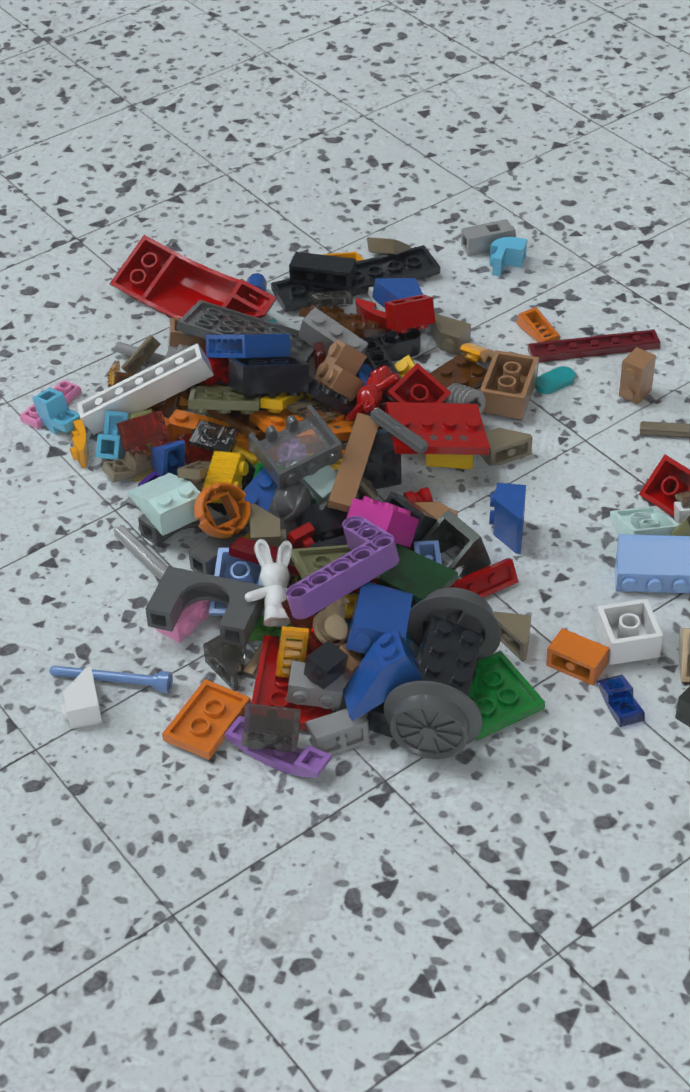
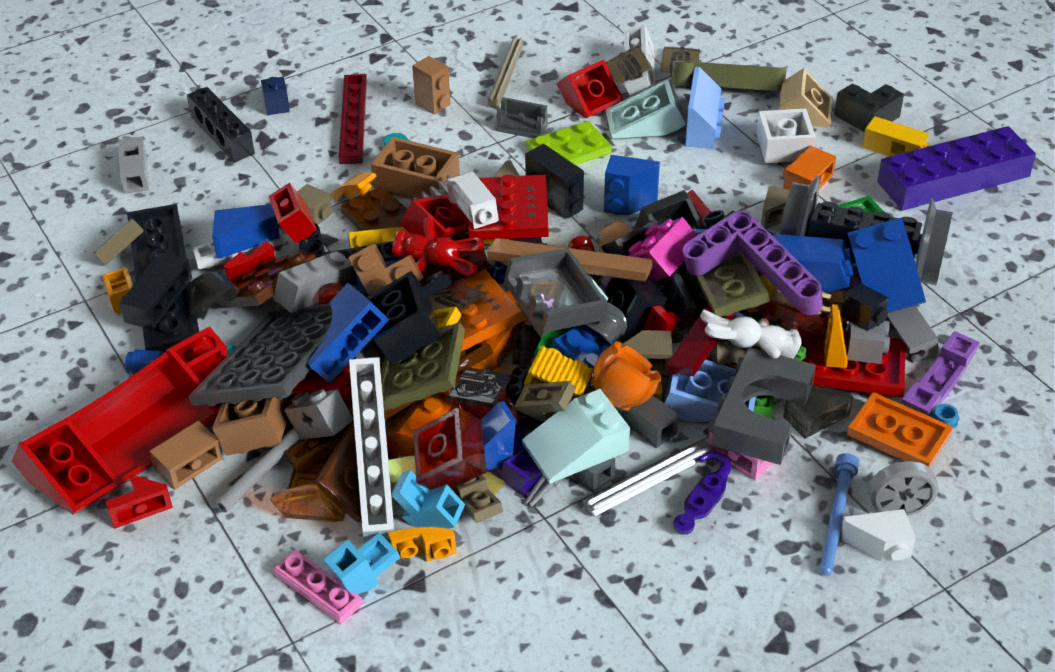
camera: 85 degrees left, 0 degrees up
(122, 310) = (144, 501): none -> red slope
(122, 706) = (903, 486): none -> light grey wheel
(123, 591) = (704, 495): none -> dark purple piece
(141, 355) = (259, 472): dark tan slope -> none
(157, 319) = (186, 455): none -> medium nougat brick
(227, 748) = (947, 414): none -> dark azure plate
(270, 727) = (931, 367): clear smoke brick -> none
(399, 430) = (530, 219): dark grey axle -> none
(420, 396) = (473, 199): none -> white window
(460, 568) = (713, 218): none -> black plate
(505, 463) = (563, 179): none -> black brick
(507, 251) = (173, 154): medium azure brick -> none
(533, 315) = (308, 149): orange slope -> none
(552, 270) = (220, 124): none -> black brick
(585, 485) = (575, 143): none -> lime plate
(608, 292) = (275, 95): none -> dark blue slope
(613, 447) = (522, 118): none -> dark grey hinge
(614, 781) = (955, 167): none -> dark purple brick
(620, 700) = (854, 160): clear blue slope -> none
(654, 729) = (893, 138): none -> yellow brick

